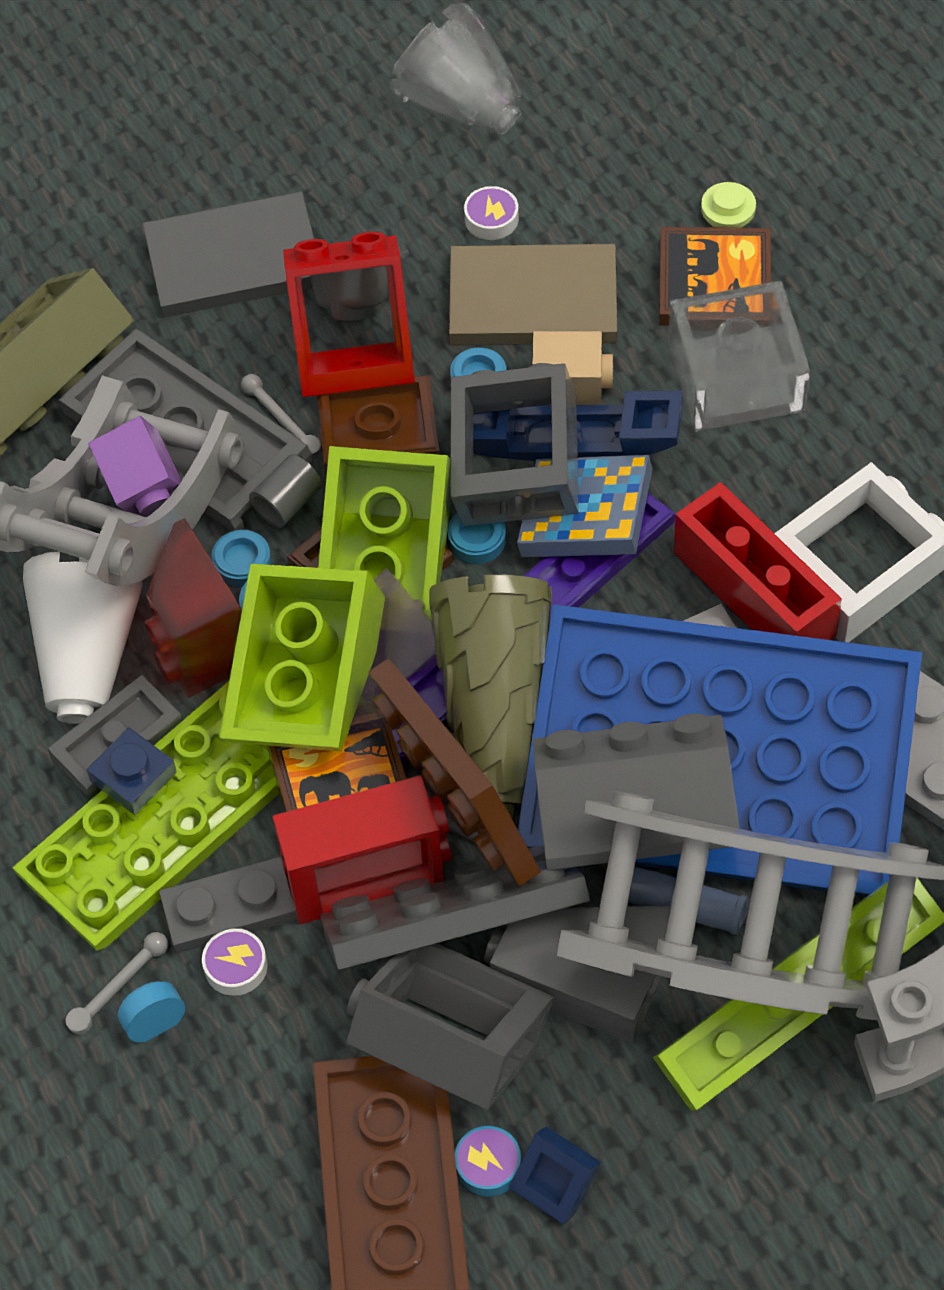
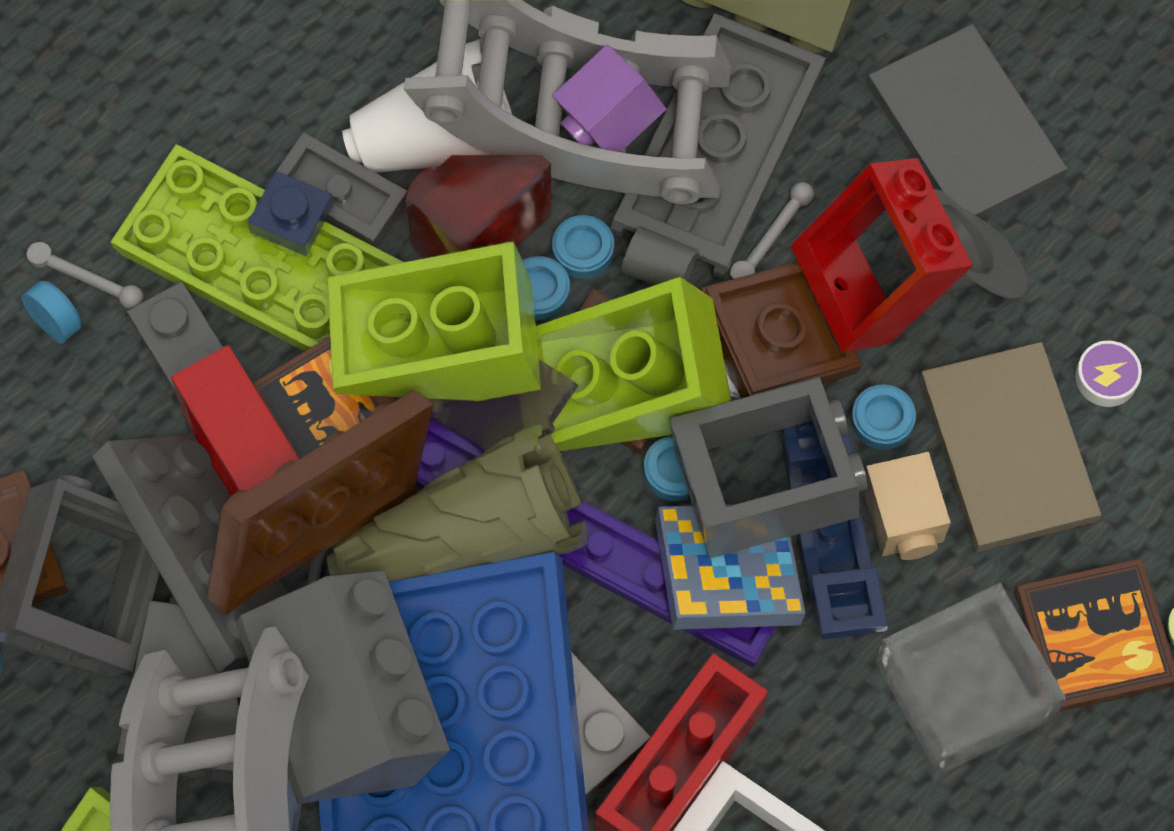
camera: 70 degrees right, 10 degrees up
(234, 962) = (126, 372): tile -> none

